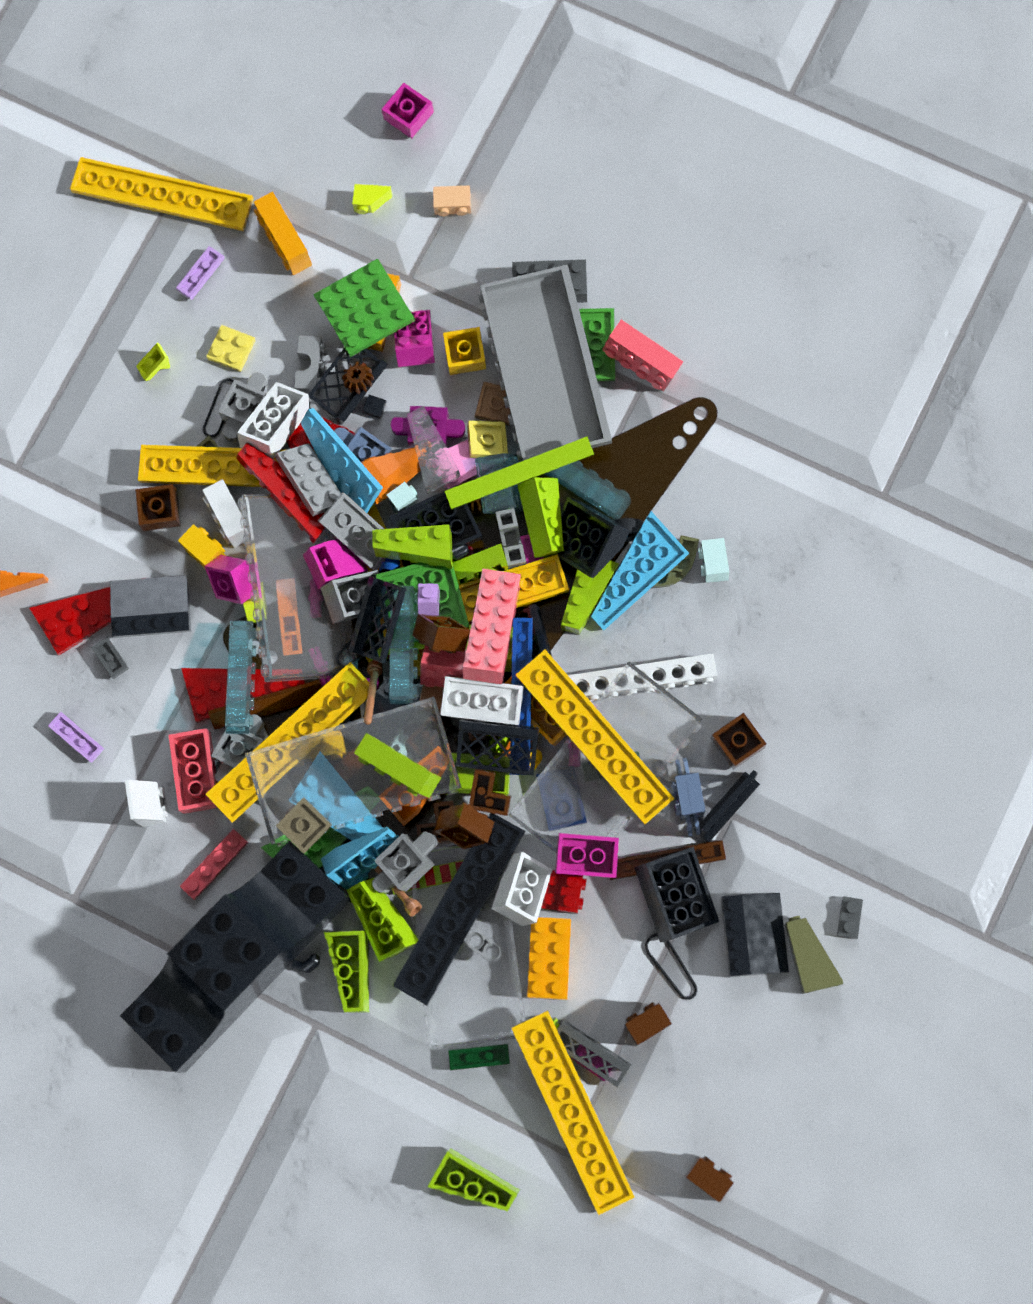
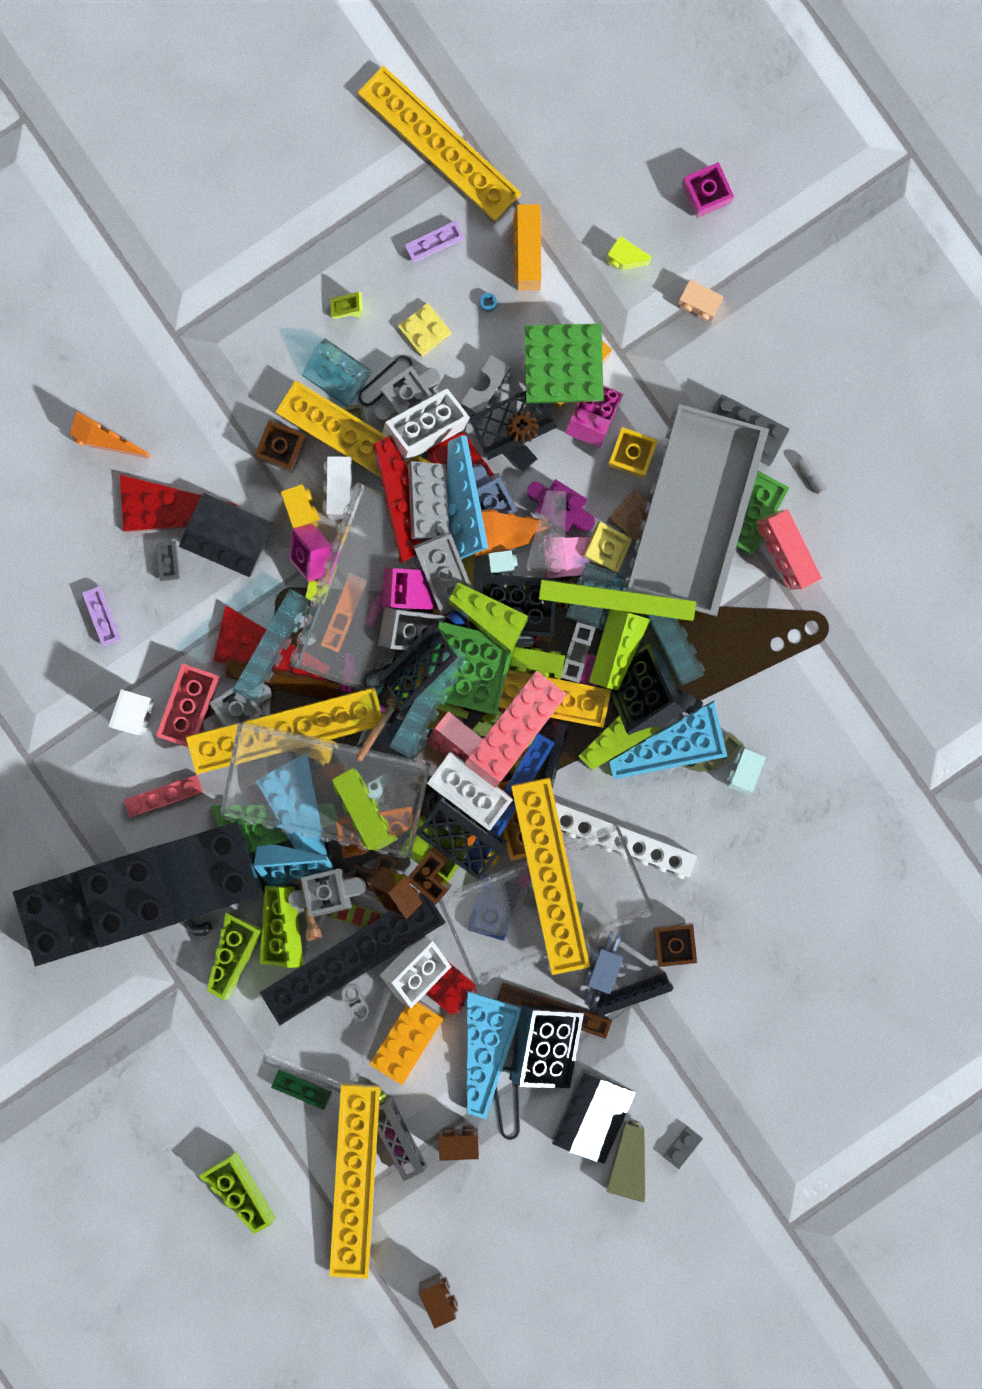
camera: 20 degrees right, 10 degrees up
(173, 422) = (336, 372): none -> clear light blue slope
(277, 301) = (488, 308): none -> dark azure bush
(303, 825) = (256, 815): dark tan plate -> none
(428, 599) = (470, 678): lavender slope -> none
(441, 633) = (466, 713): reddish brown brick -> none
(586, 855) = (486, 974): dark pink brick -> none
(622, 917) = (488, 1041): none -> medium azure wing
(629, 290) = (812, 476): none -> light grey piece

